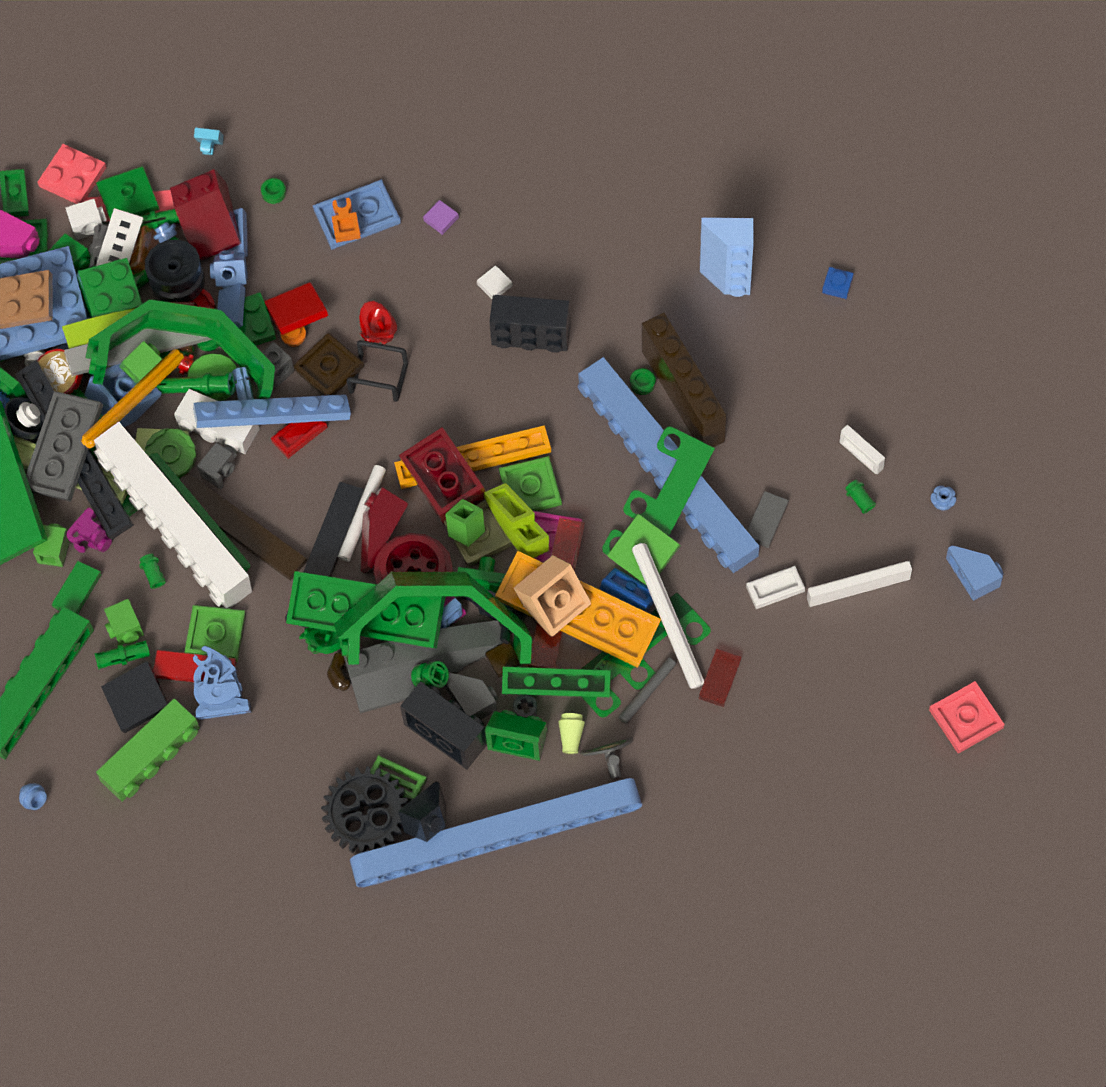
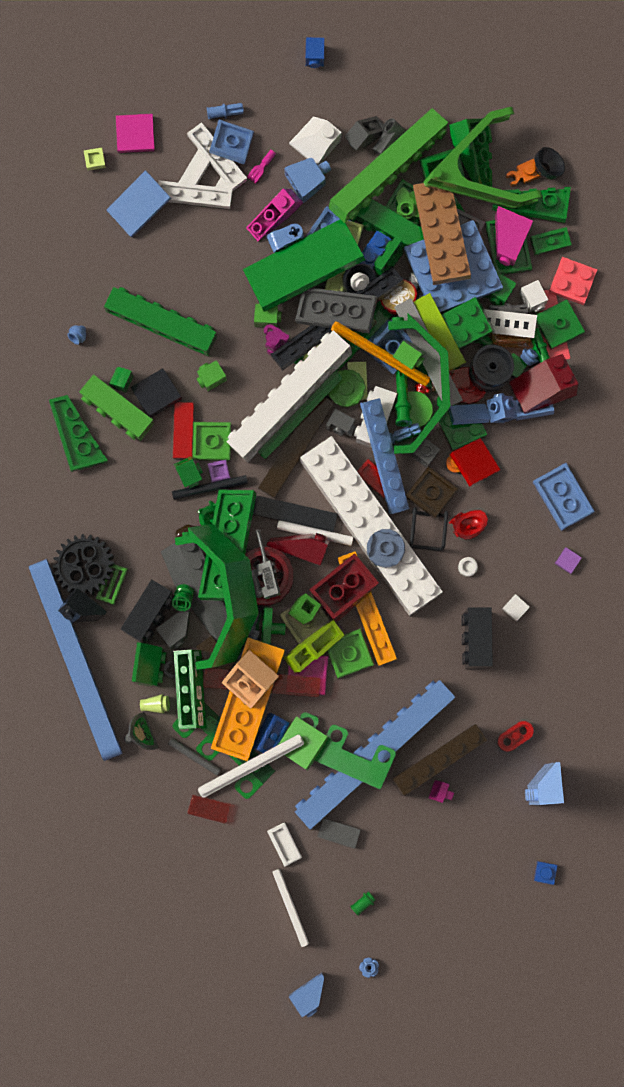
camera: 80 degrees right, 15 degrees up
(77, 588) = (236, 339): green tile -> none
(106, 740) = (121, 379): none -> green brick
(122, 654) = (188, 378): green pin -> none
(150, 565) = (254, 389): green pin -> none
(190, 808) = (77, 442): none -> green wing
(208, 139) = (613, 376): medium azure tile -> none
(220, 691) = (162, 451): medium blue piece -> none
(254, 661) = (189, 472): none -> green brick
(258, 627) = (218, 471): none -> medium lavender tile
(273, 190) = (576, 431): green tile -> none
(279, 640) = (209, 487): none -> black piece
(345, 222) = (549, 489): orange plate -> none
(361, 441) = (364, 517): none -> white brick
(397, 415) = (385, 548): none -> sand blue tile
(411, 556) = (268, 573): none -> dark grey piece
(433, 334) = (467, 567): none -> white tile
(642, 381) = (444, 728): green tile -> none
(661, 300) = (515, 736): none -> red plate
(725, 390) = (440, 791): none -> dark pink tile
(862, 450) = (401, 901): white tile -> none
(966, 717) = (191, 995): coral plate -> none

